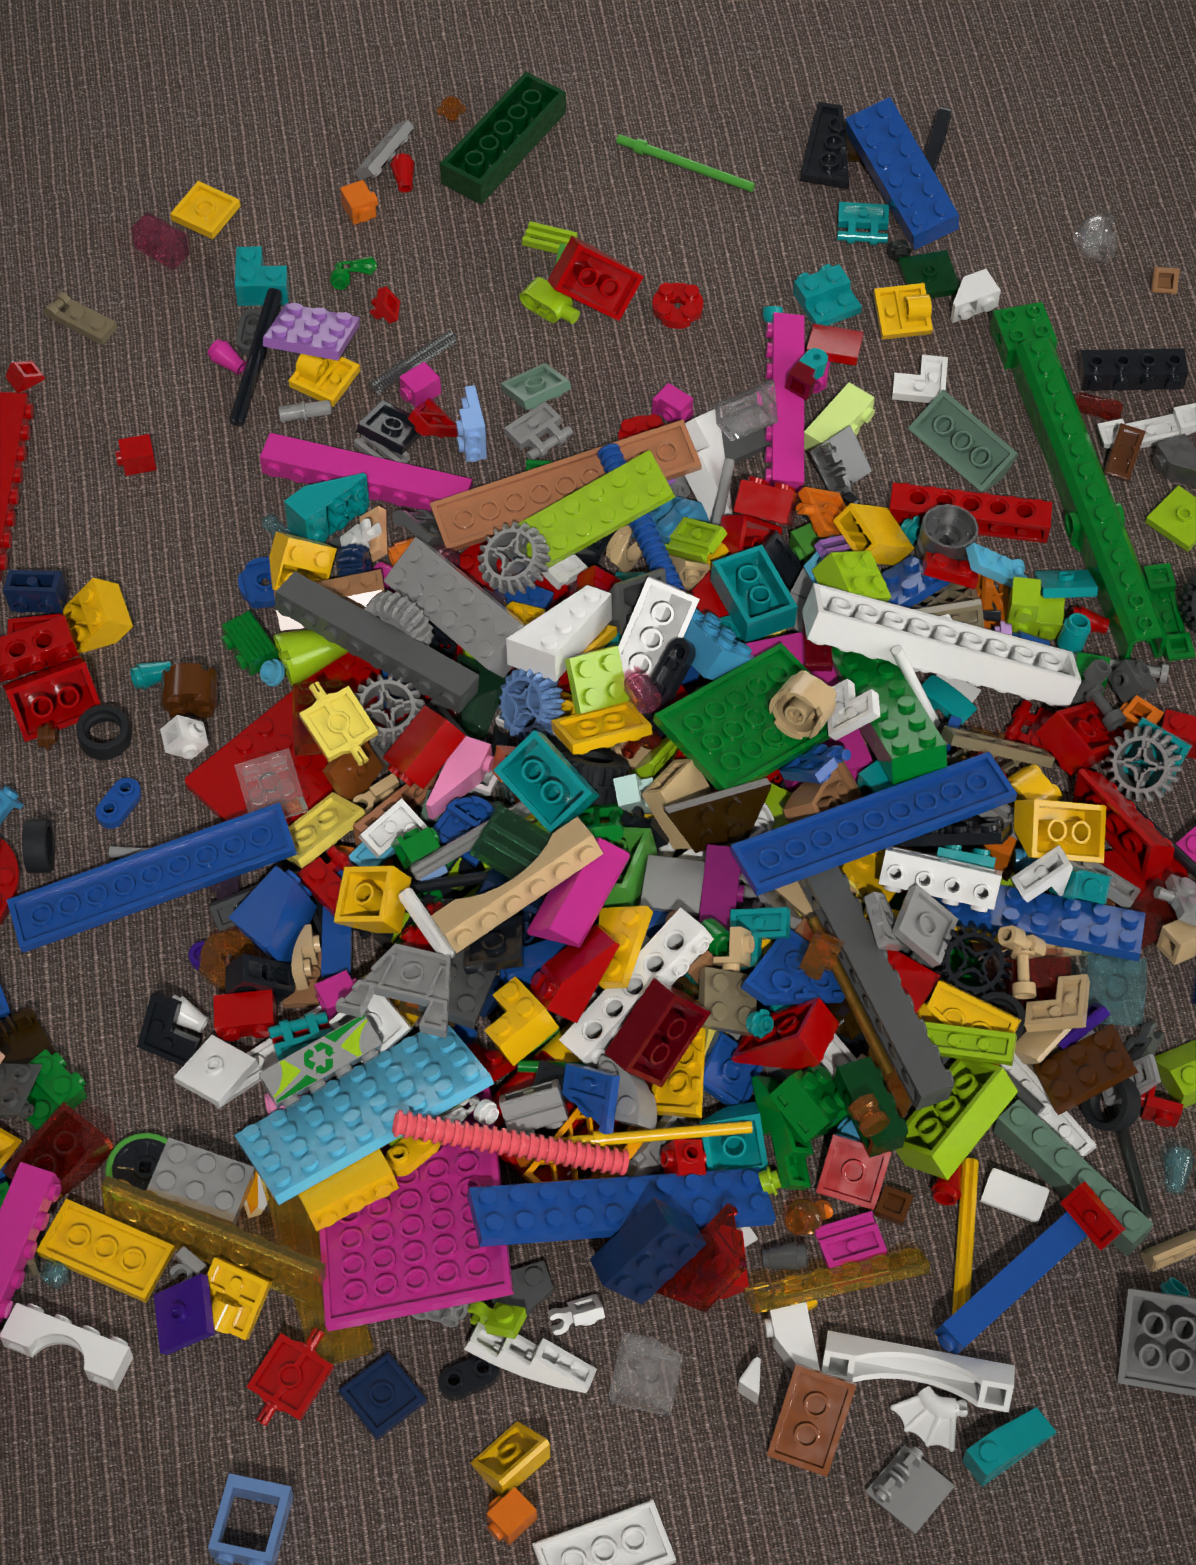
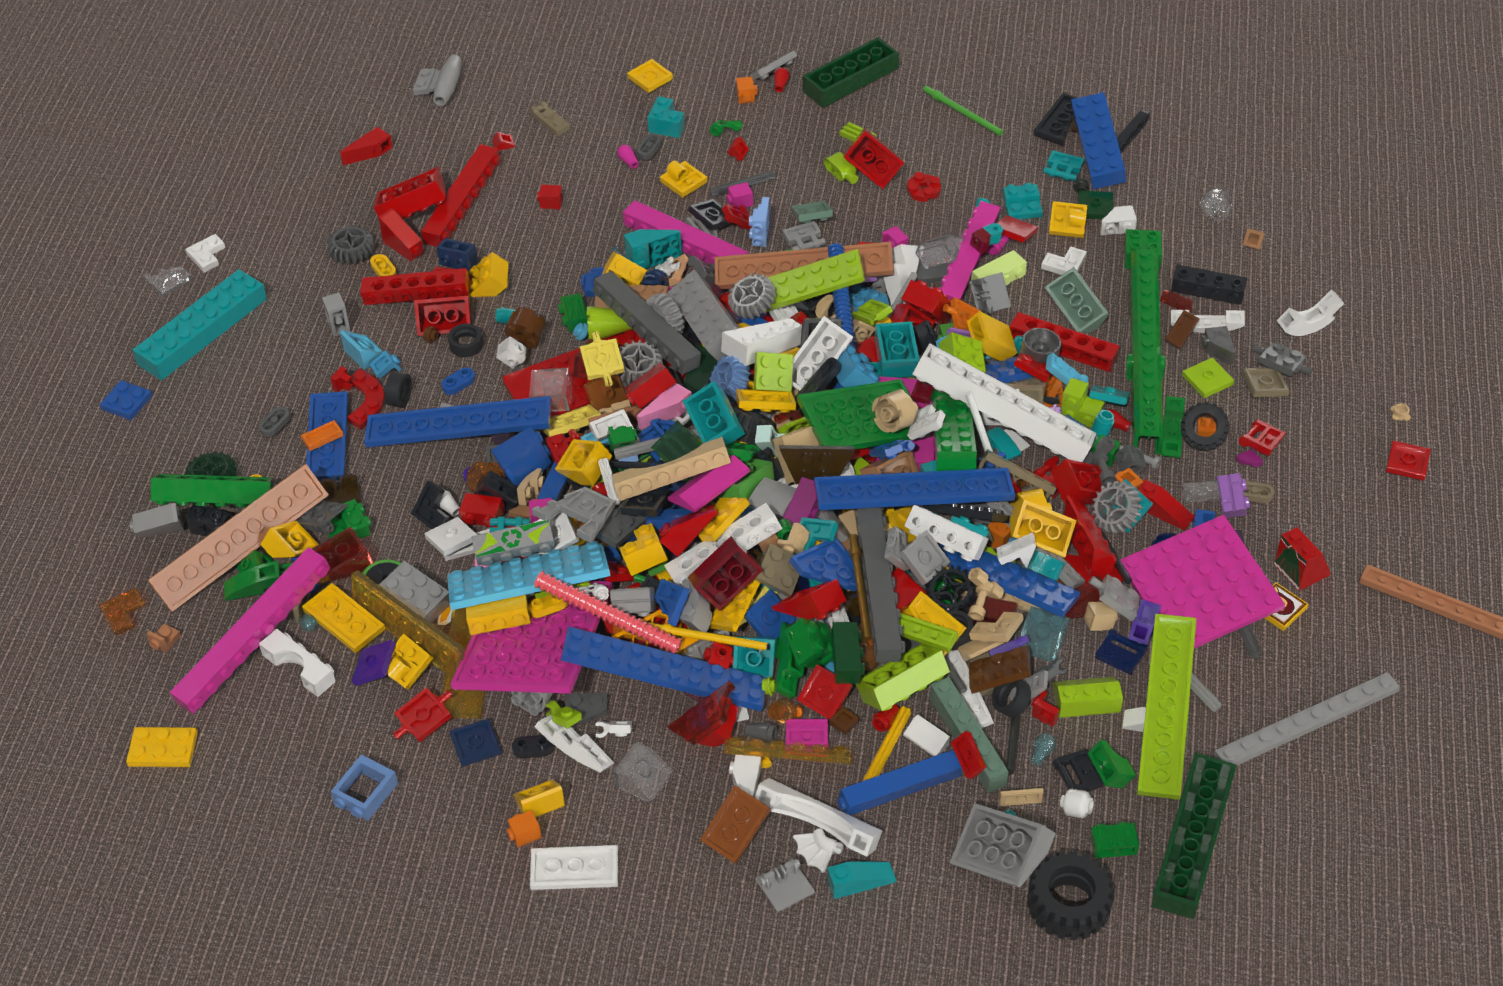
camera: 20 degrees right, 10 degrees down
(160, 241) = (614, 86): clear pink brick -> none
(188, 1264) = (388, 634): light grey tile -> none
(254, 358) = (644, 159): black axle -> none
(304, 410) = (663, 195): light grey axle -> none
(311, 331) = (685, 152): medium lavender plate -> none
(451, 108) = (826, 51): clear orange plate -> none
(642, 692) = (798, 384): clear pink brick -> none
(648, 1251) = (669, 697): dark blue brick -> none
(750, 1381) = (708, 794): white slope -> none
(759, 1023) = (791, 584): teal plate -> none
(820, 954) = (846, 554): clear orange brick -> none
(869, 1115) = (838, 651): clear orange wheel -> none

